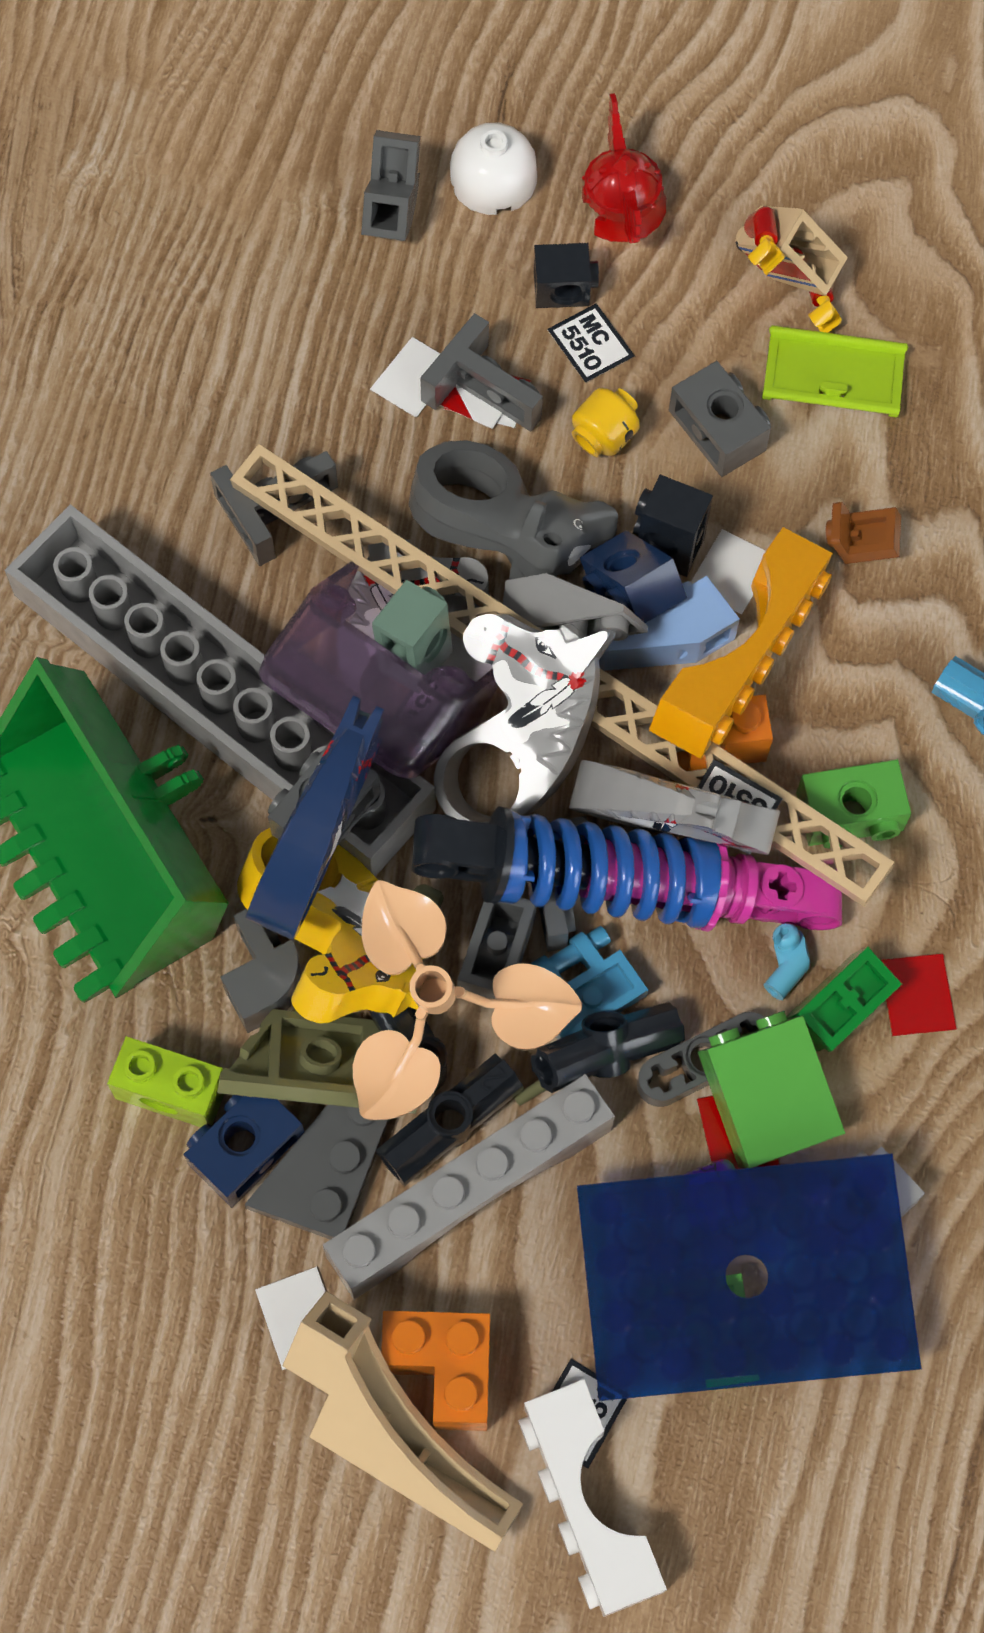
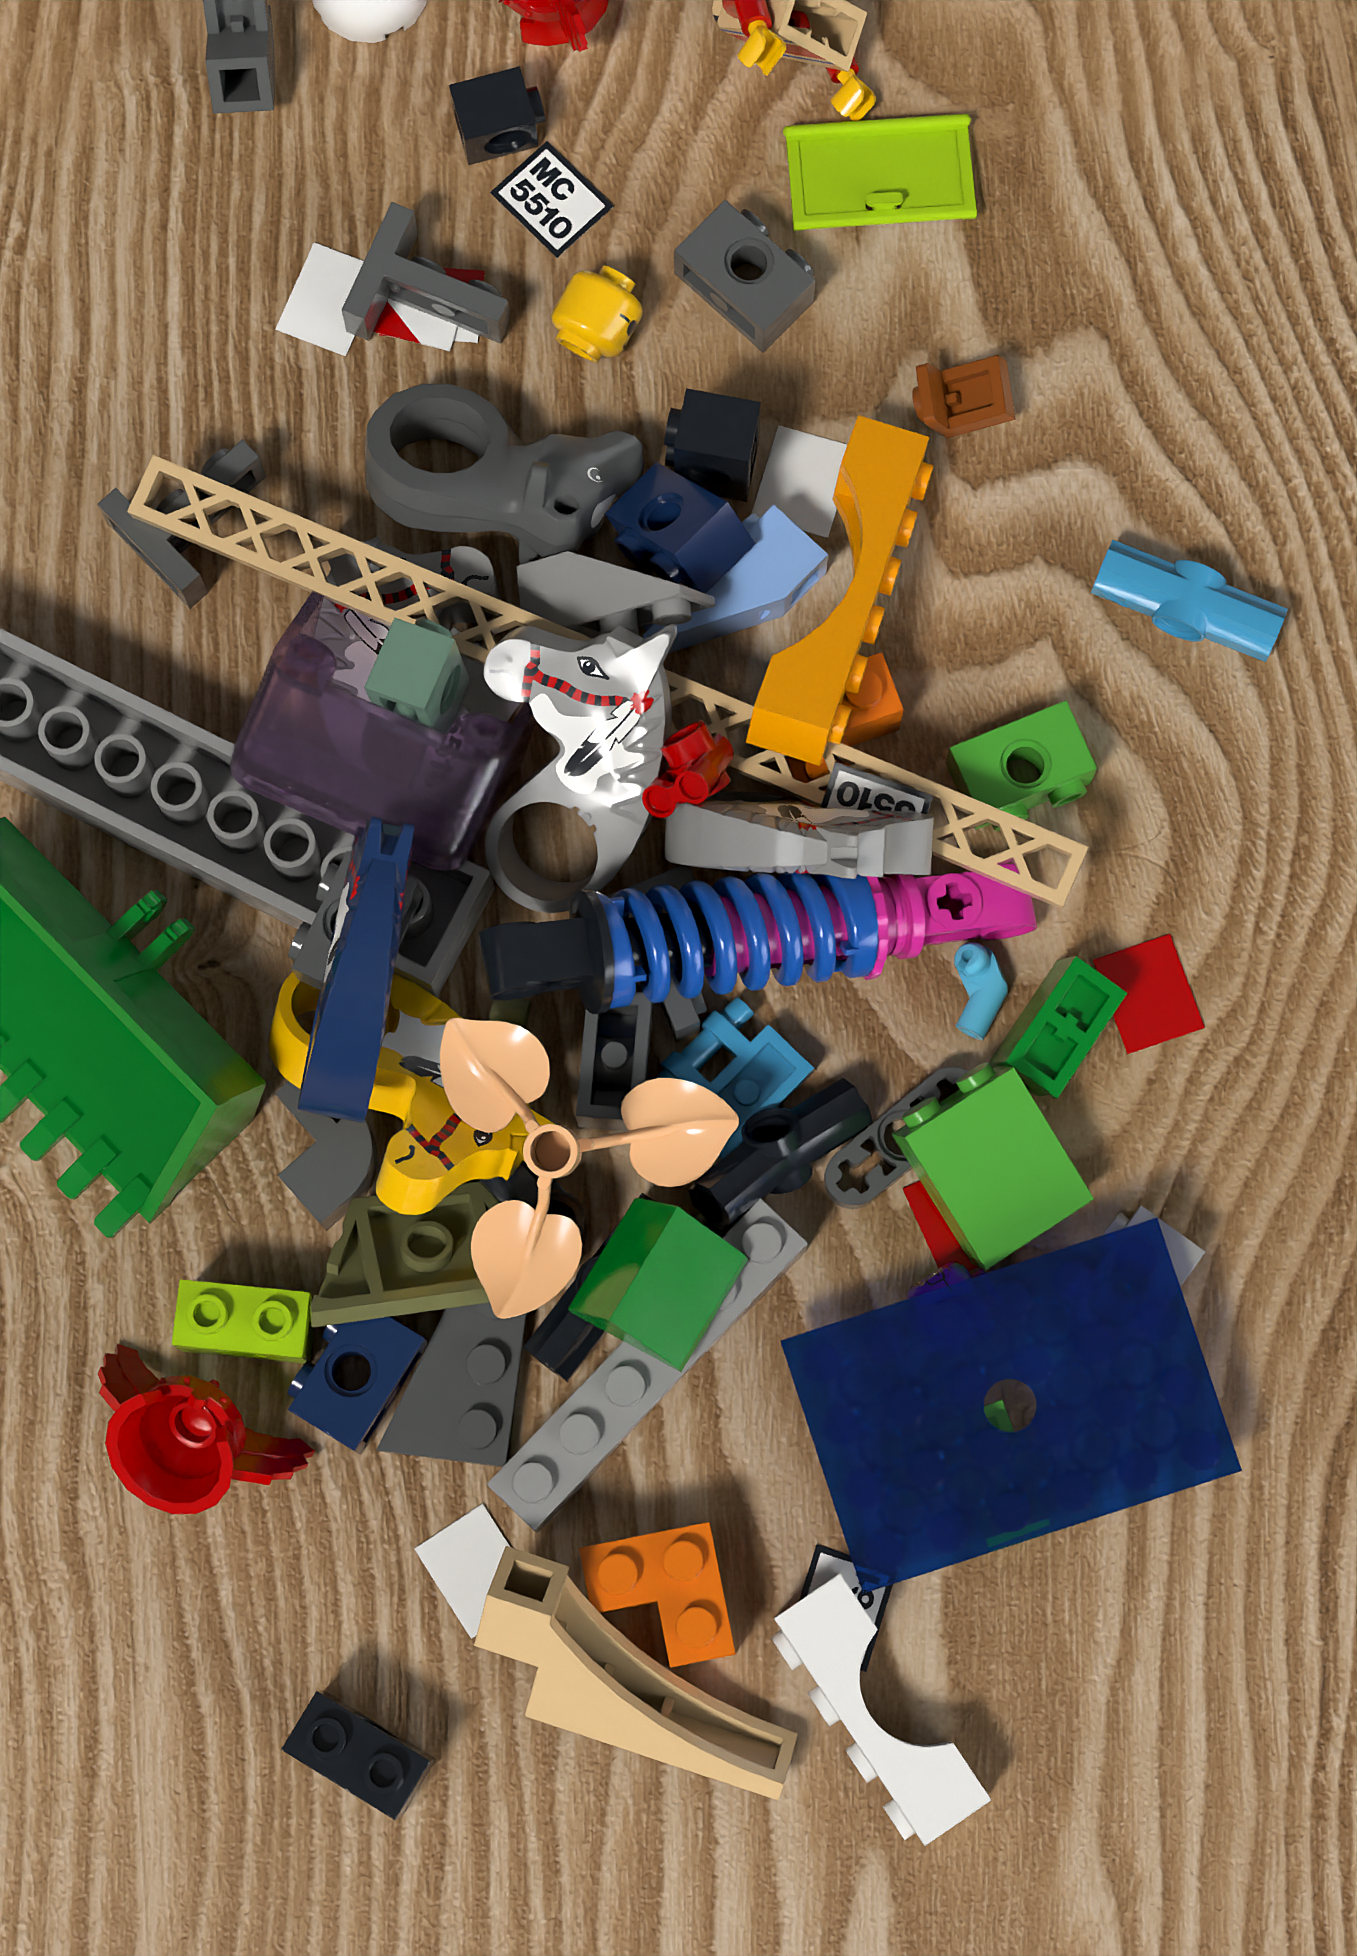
camera: 10 degrees left, 10 degrees up
(99, 1158) = (184, 1438): none -> red helmet
(171, 1437) = (358, 1754): none -> black brick
(493, 1117) = (659, 1281): none -> green slope
(606, 739) = (695, 769): none -> red plate

